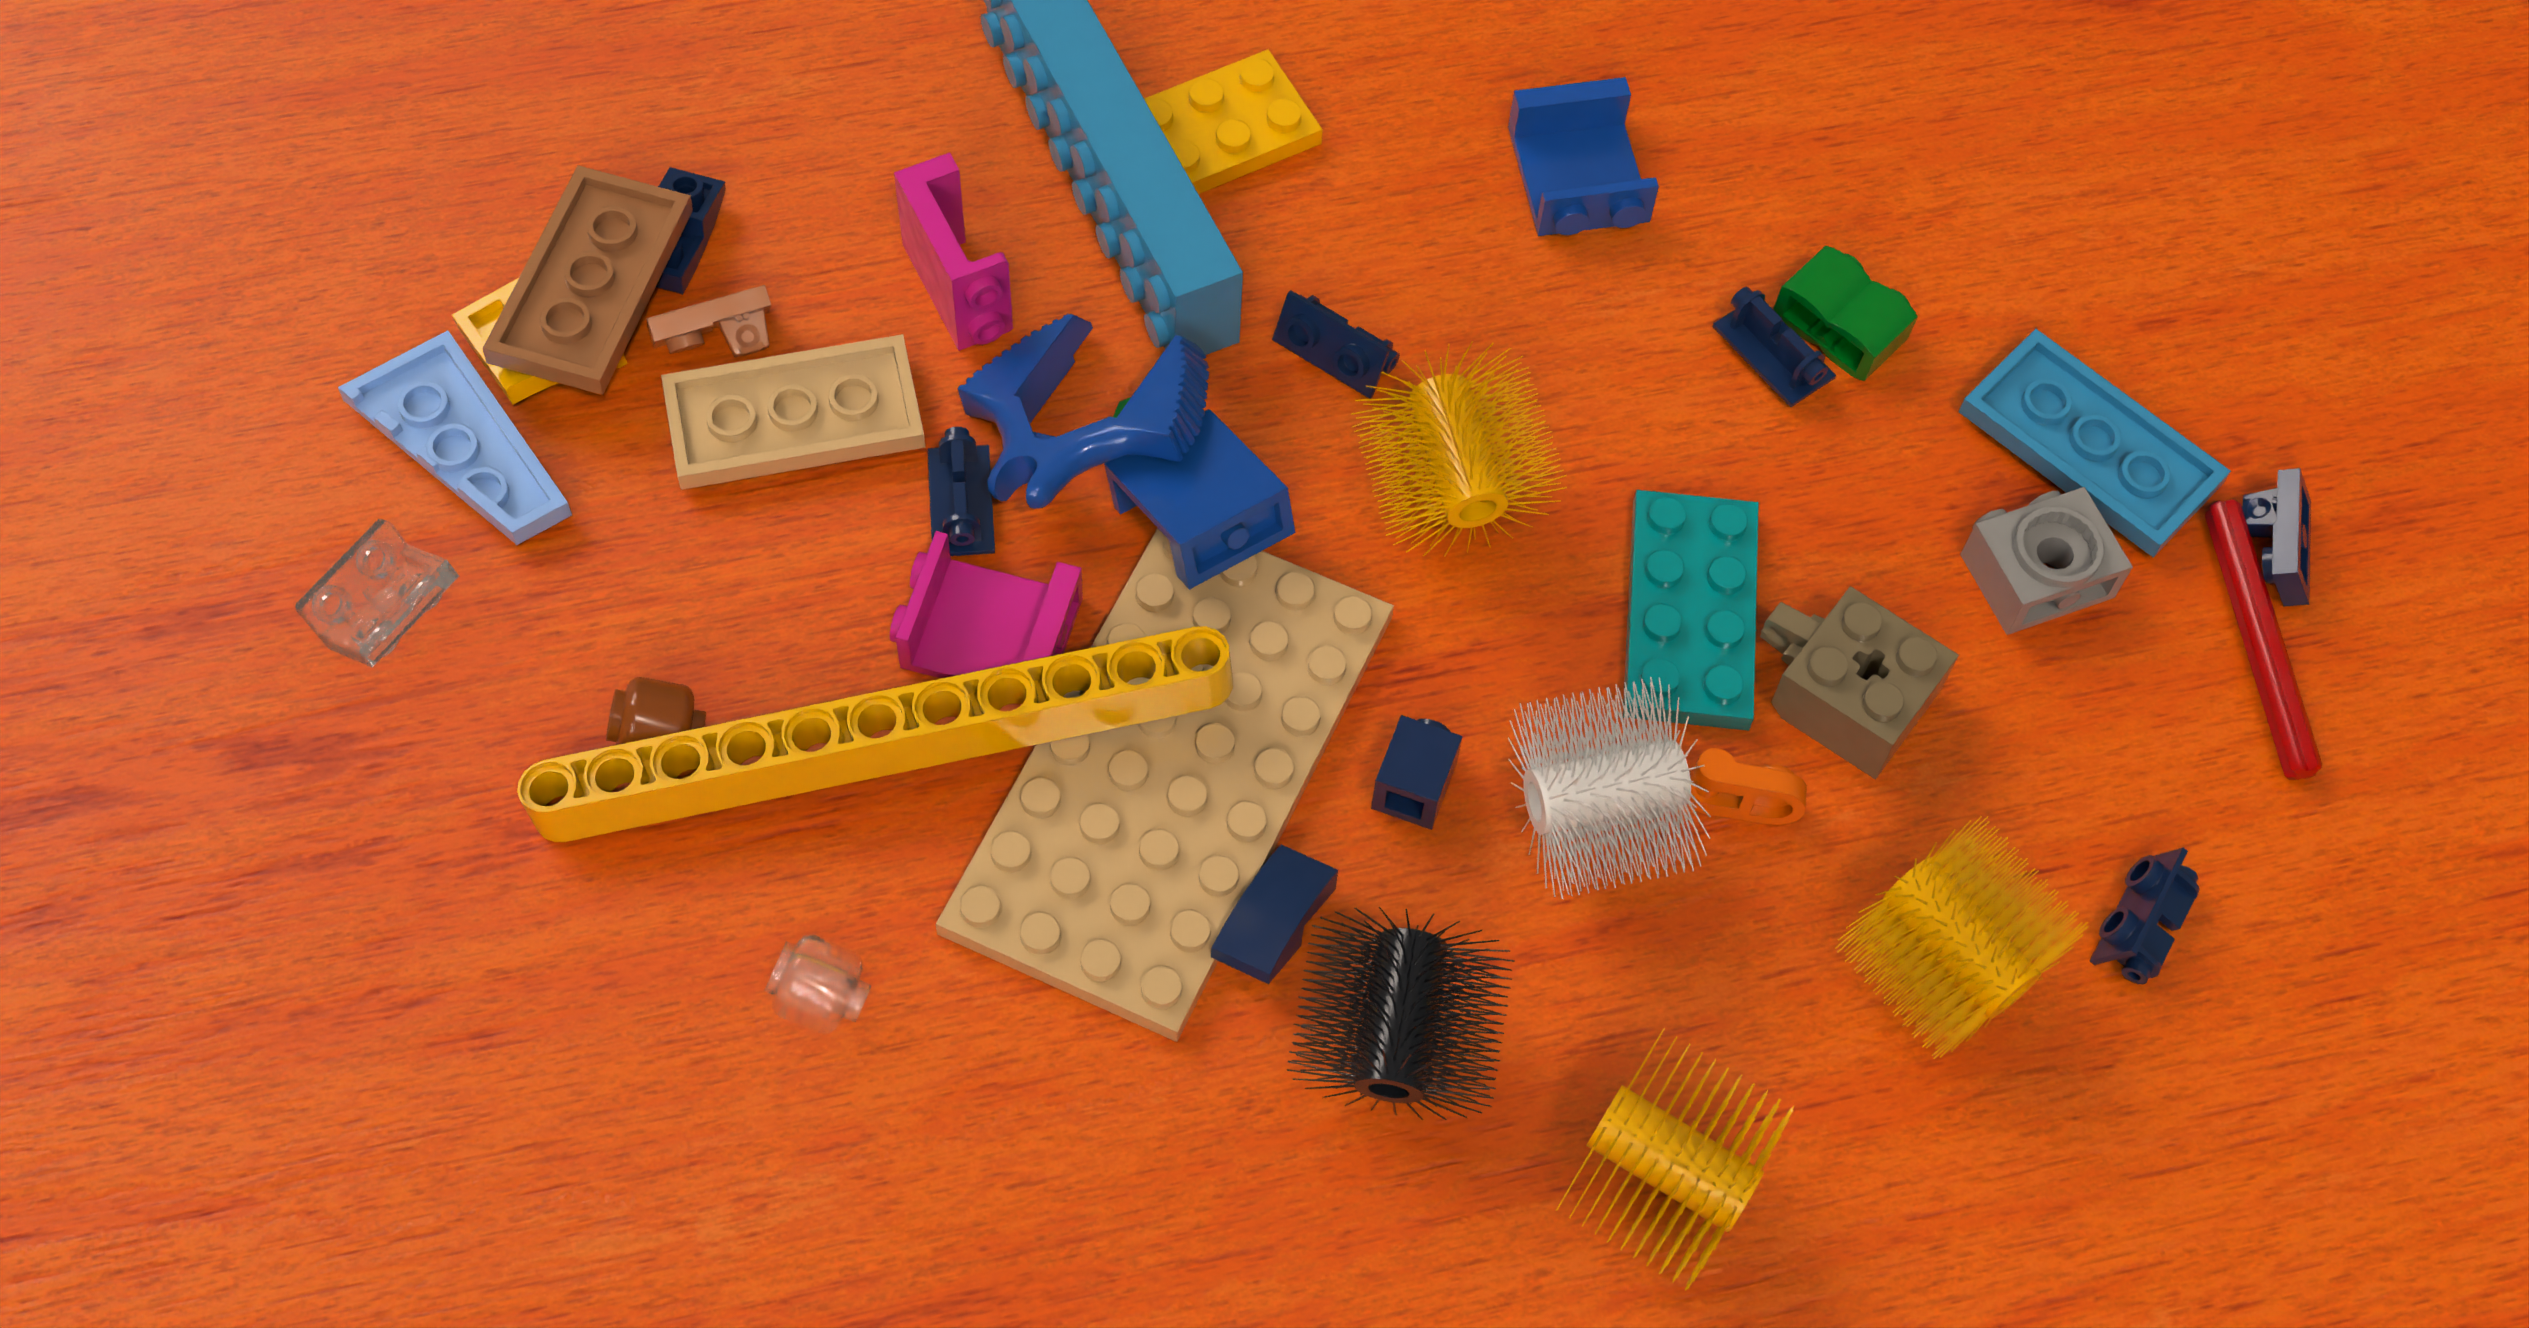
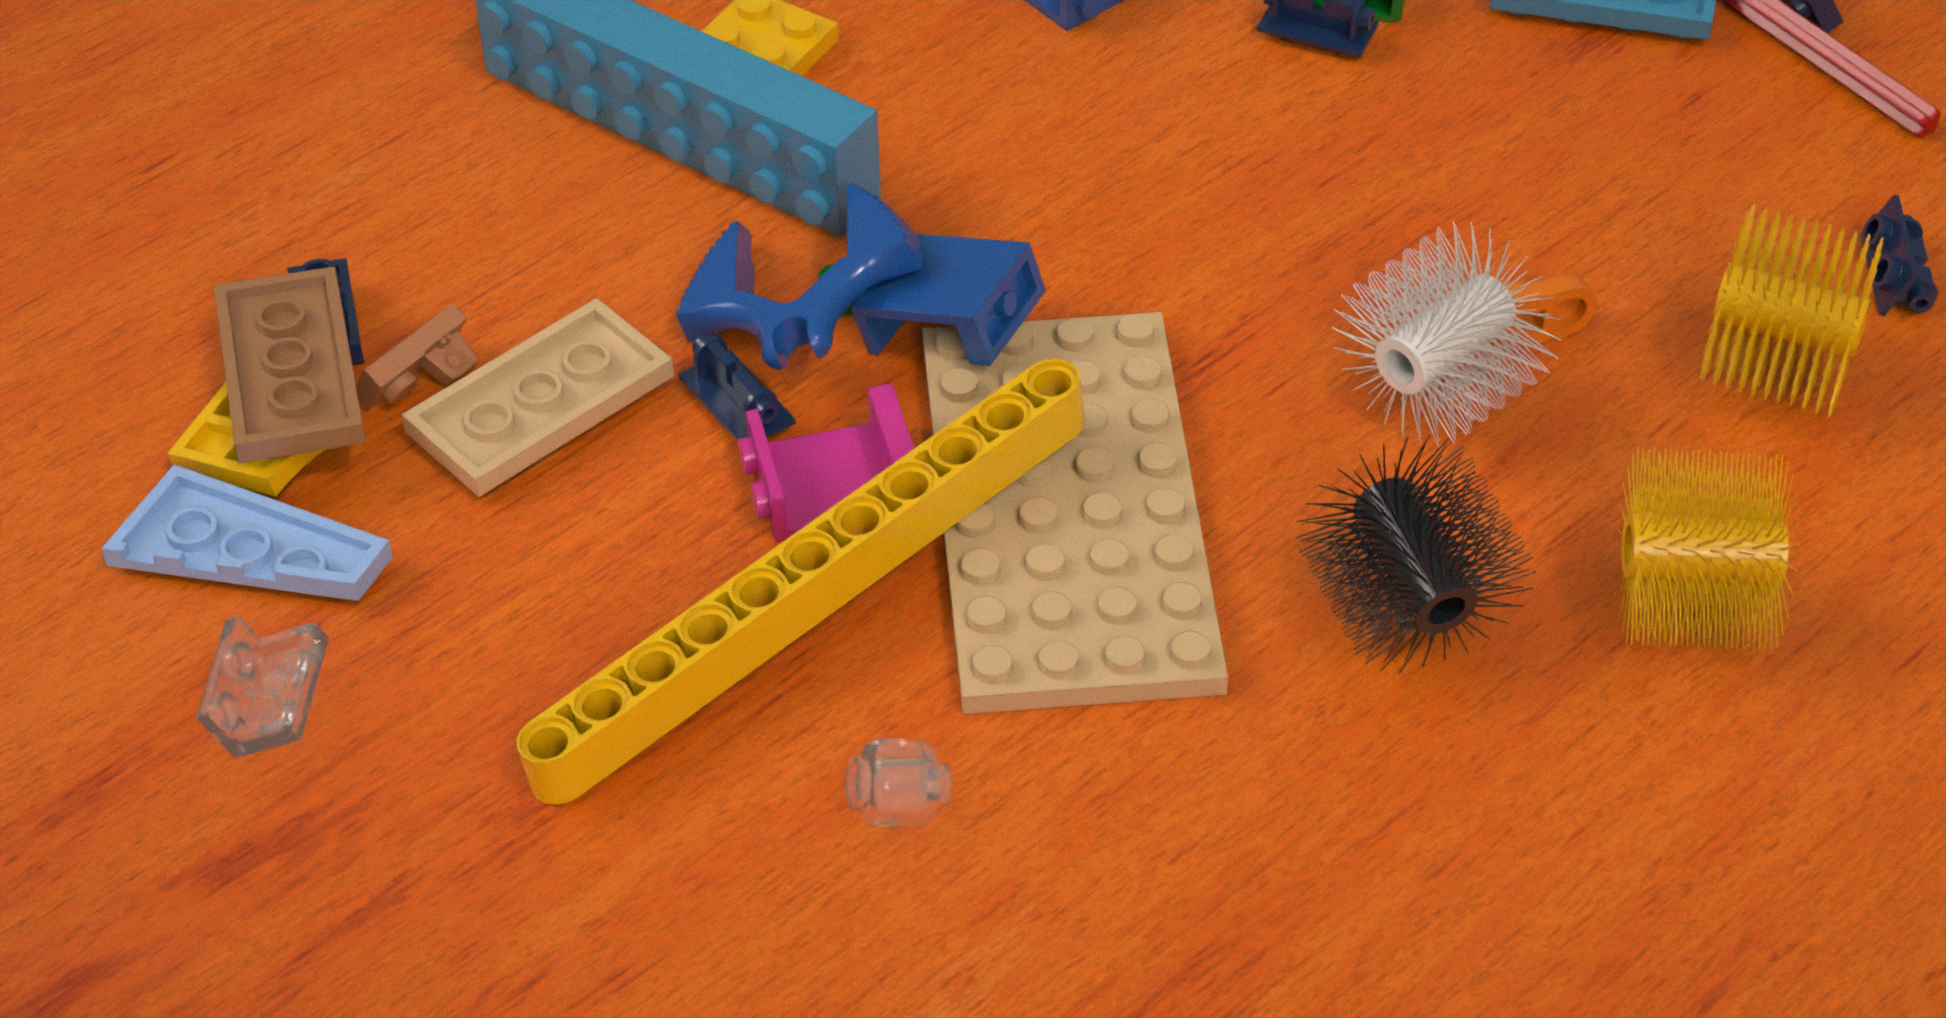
camera: 25 degrees left, 15 degrees down
(652, 710) = (586, 650): dark orange head -> none
(967, 294) = (599, 225): dark pink panel -> none
(1272, 914) = (1240, 560): dark blue slope -> none
(1332, 344) = (965, 159): dark blue hinge -> none
(1416, 771) = (1275, 412): dark blue brick -> none
(1458, 450) = (1142, 166): yellow piece -> none
(1693, 607) = (1383, 202): teal plate -> none
(1855, 677) = (1562, 199): dark tan hinge -> none
(2054, 529) = (1635, 68): light grey brick -> none

